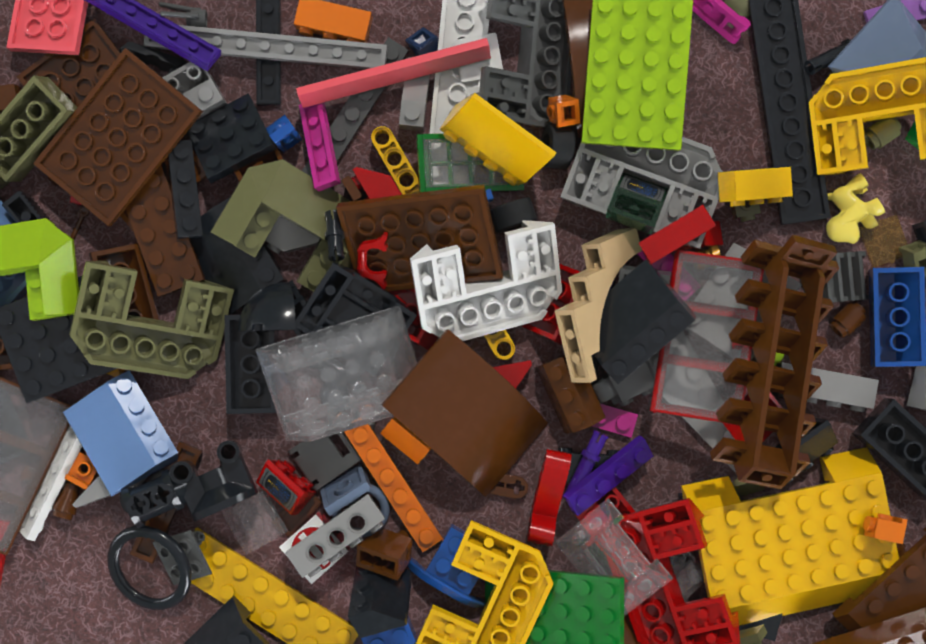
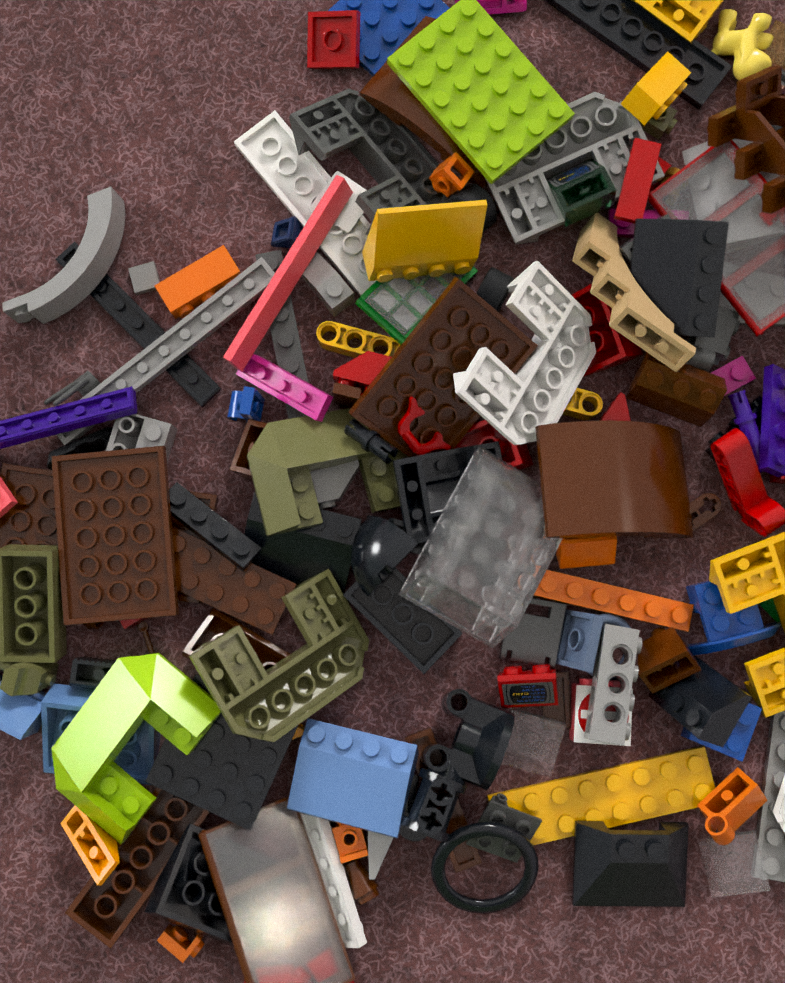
camera: 45 degrees left, 5 degrees down
(230, 138) = (208, 450): black plate -> none

